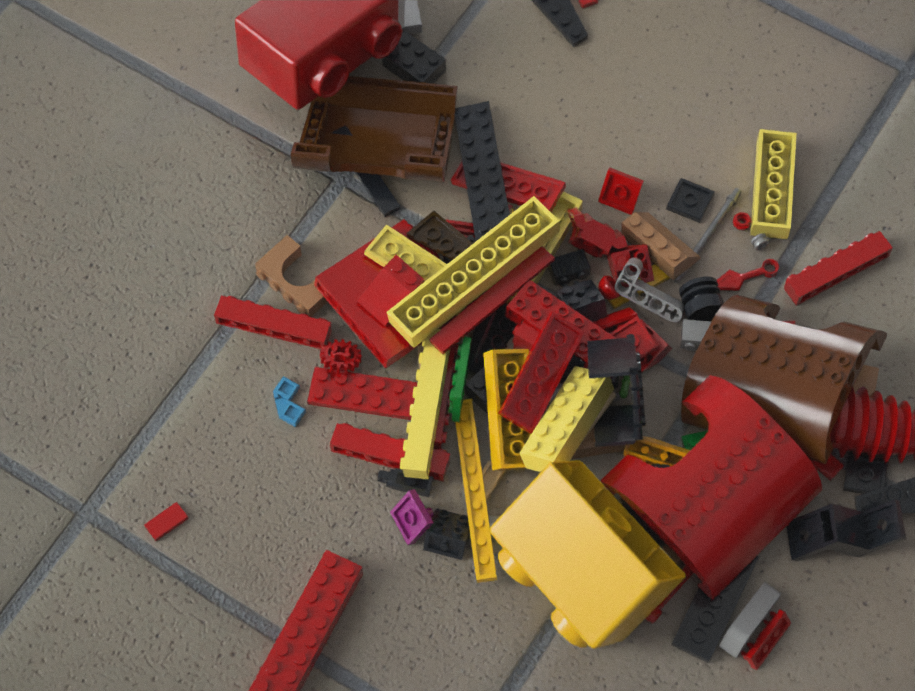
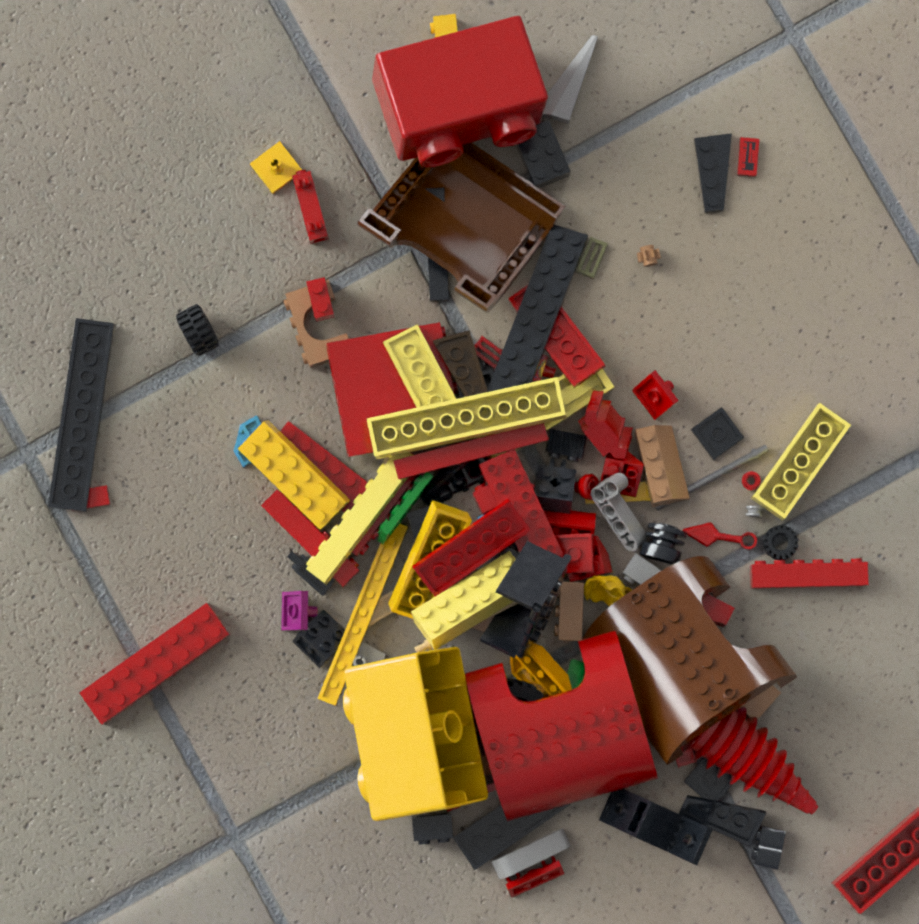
camera: 30 degrees right, 20 degrees up
(122, 454) = (81, 415): none -> black plate
(191, 177) = (275, 167): none -> yellow tile
(192, 327) = (197, 330): none -> black tyre
(239, 190) = (310, 206): none -> red brick
(273, 322) = (273, 358): red brick -> none
(289, 249) = (320, 299): none -> red brick
(340, 356) = (313, 426): red gear -> none
(345, 402) = (294, 474): none -> yellow brick
(389, 288) = (385, 394): red slope -> none
(503, 132) = (586, 272): none -> olive tile
(548, 94) = (648, 255): none -> medium nougat gear
(648, 640) = (432, 827): none -> black brick
(658, 399) = (570, 612): none -> medium nougat brick
(673, 362) = (605, 589): none -> yellow helmet
(797, 245) = (786, 532): none -> black tyre

